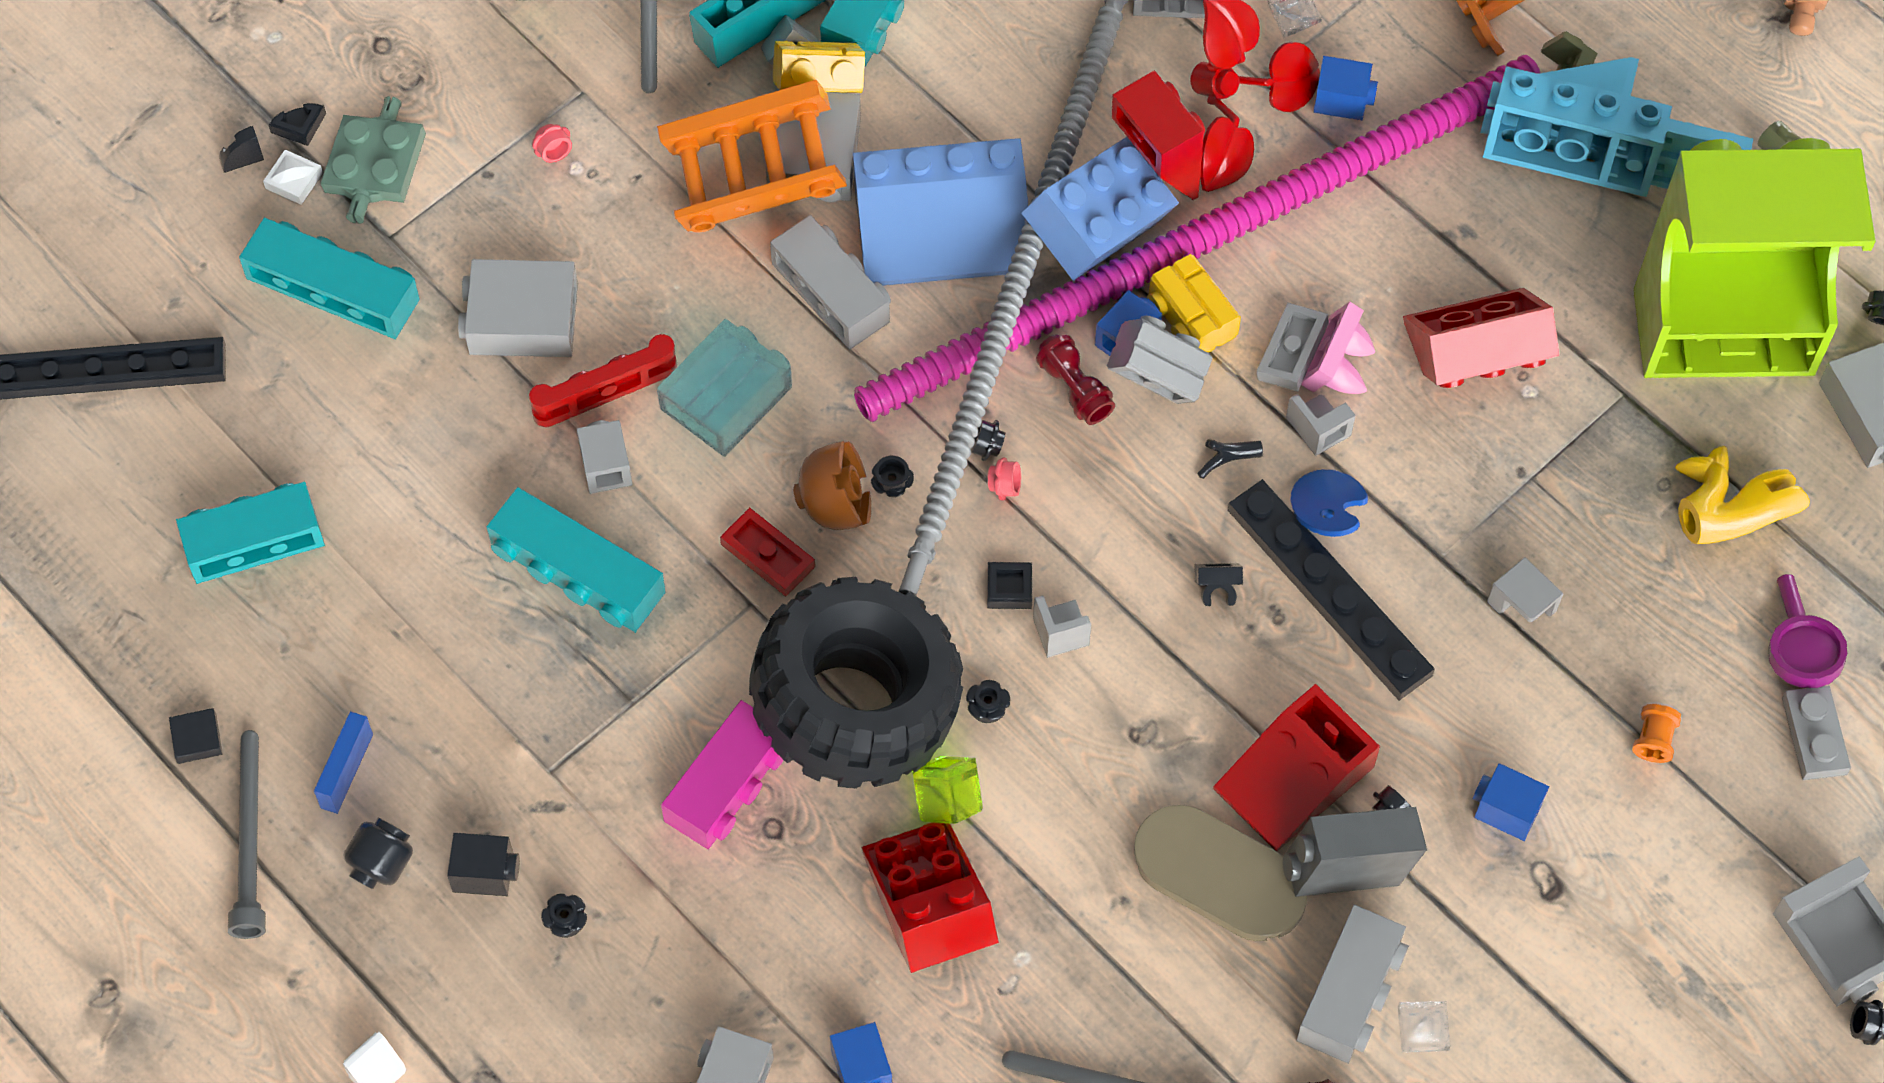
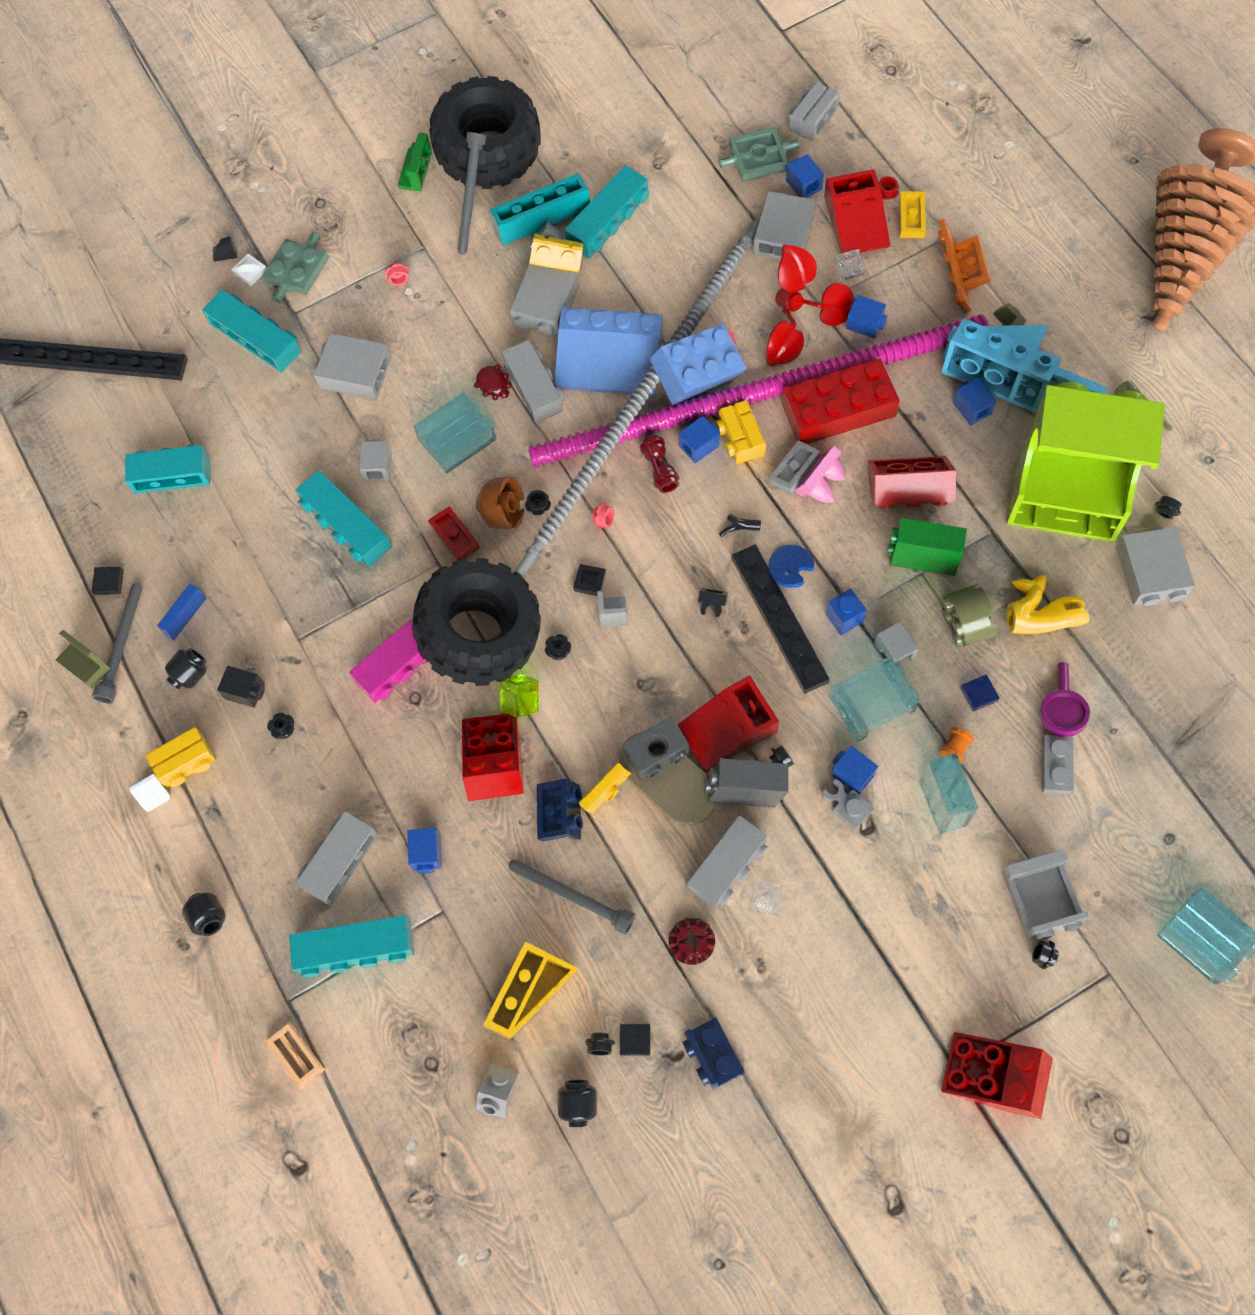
camera: 20 degrees right, 5 degrees up
(195, 873) = (82, 661): none -> olive panel
(298, 123) = (261, 240): black tile -> none
(412, 999) = (180, 758): none -> yellow brick
(604, 384) = (387, 418): red plate -> none
(725, 127) = (494, 278): orange fence -> none
(762, 294) = (493, 382): none -> dark red piece
(989, 440) = (599, 491): black plate -> none
(1061, 957) = (559, 810): none -> dark blue bracket
(1130, 907) = (605, 789): none -> yellow plate
(1160, 360) = (710, 461): brick -> none
(1162, 130) = (743, 324): red slope -> none
(1206, 805) = (665, 735): none -> dark grey brick
(1319, 422) = (799, 516): light grey panel -> none
(1338, 230) = (840, 401): none -> red brick
(1433, 558) = (845, 611): none -> blue brick
(1510, 685) = (873, 697): none -> clear light blue panel
(1518, 862) = (851, 807): none -> light grey plate
(1536, 433) = (927, 546): none -> green brick
(1546, 193) = (974, 401): none -> blue brick
(1627, 528) = (969, 614): none -> olive brick
(1667, 806) = (948, 793): none -> clear light blue brick
(1670, 646) = (979, 693): none -> clear blue tile

